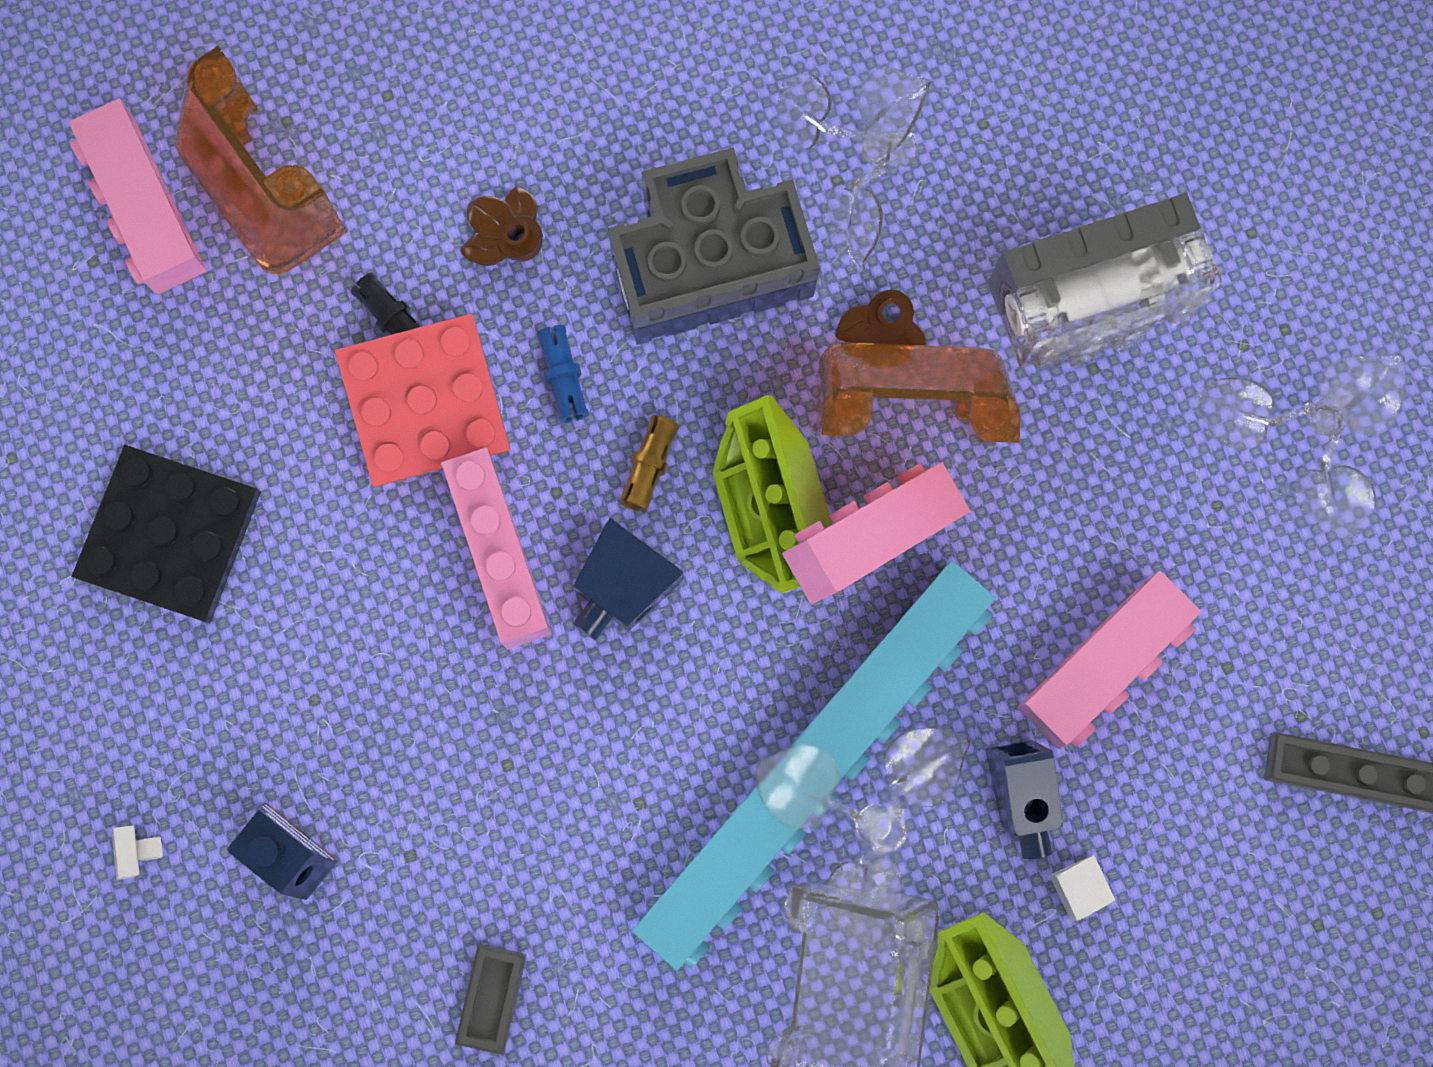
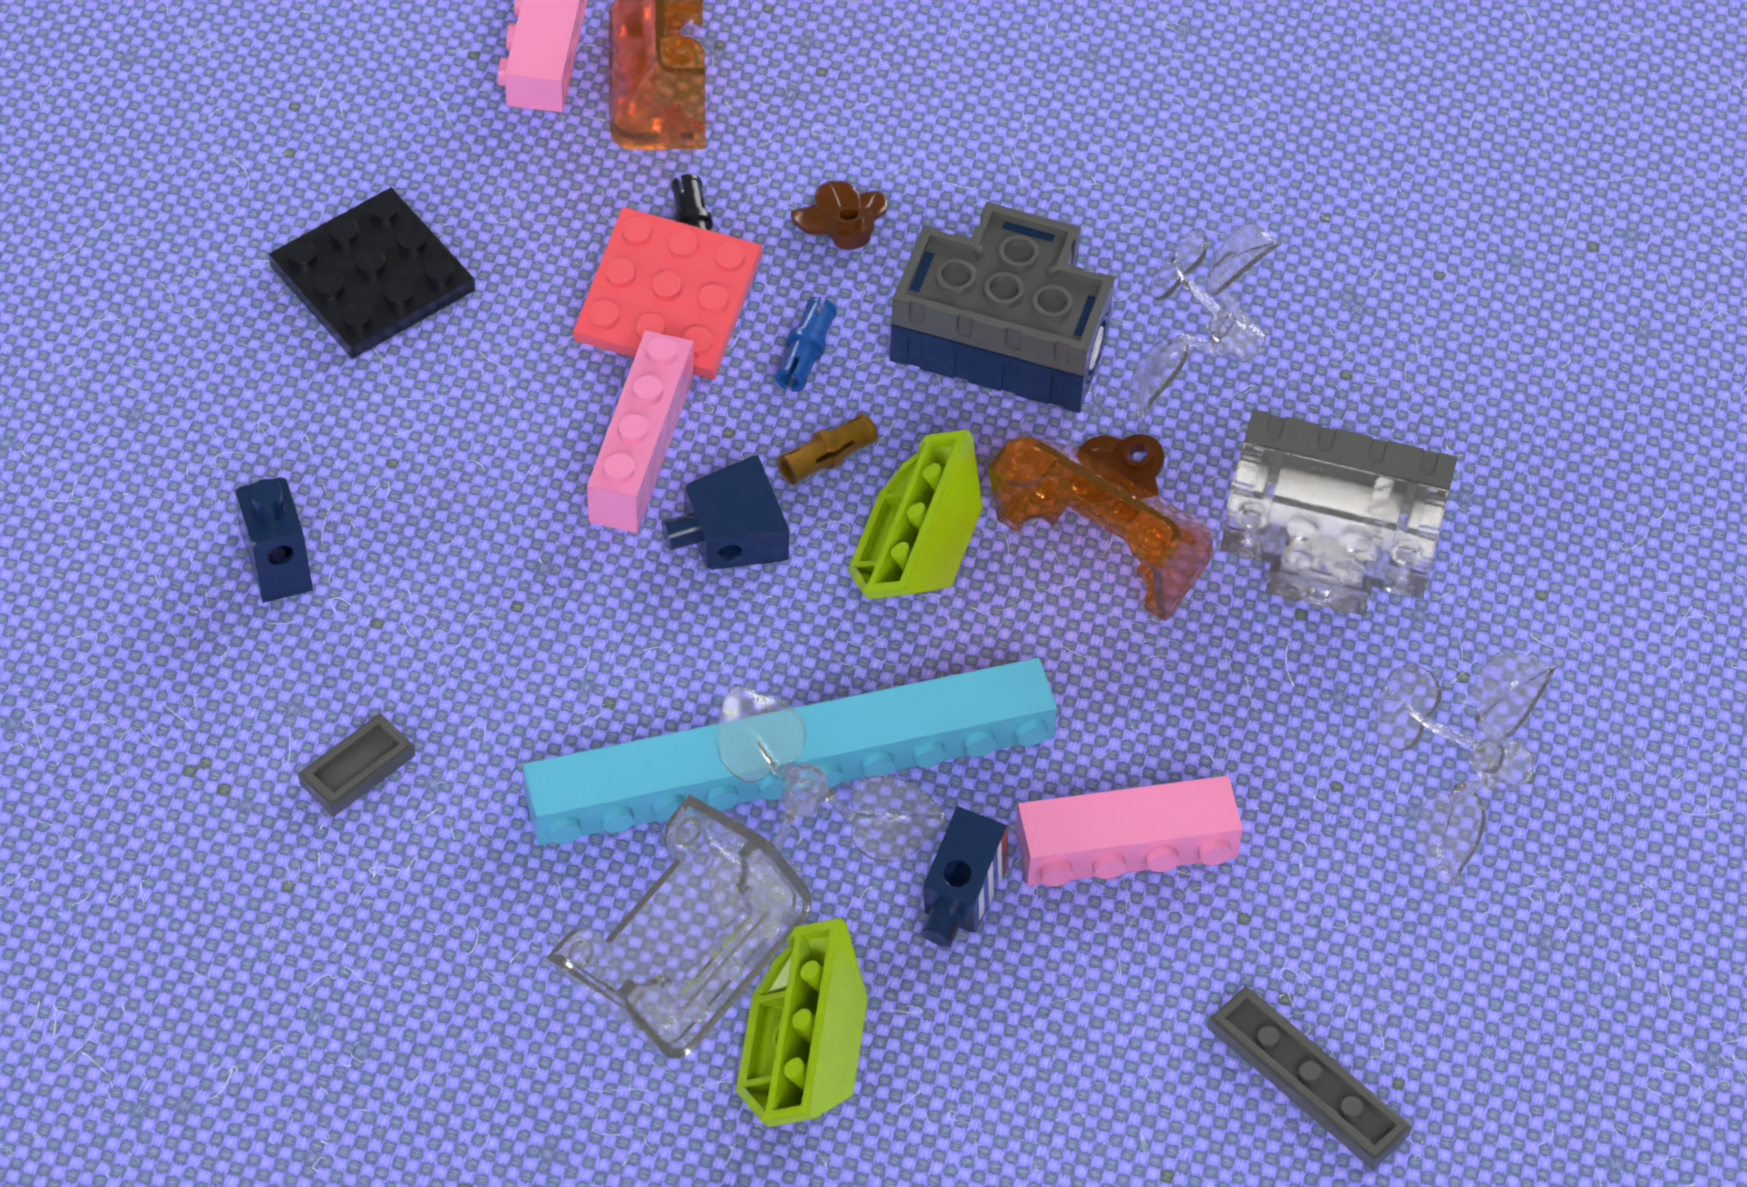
camera: 35 degrees right, 25 degrees down
(129, 851) = (152, 471): white tile -> none
(876, 532) = (984, 586): bright pink brick -> none
(1082, 888) = (960, 999): white slope -> none

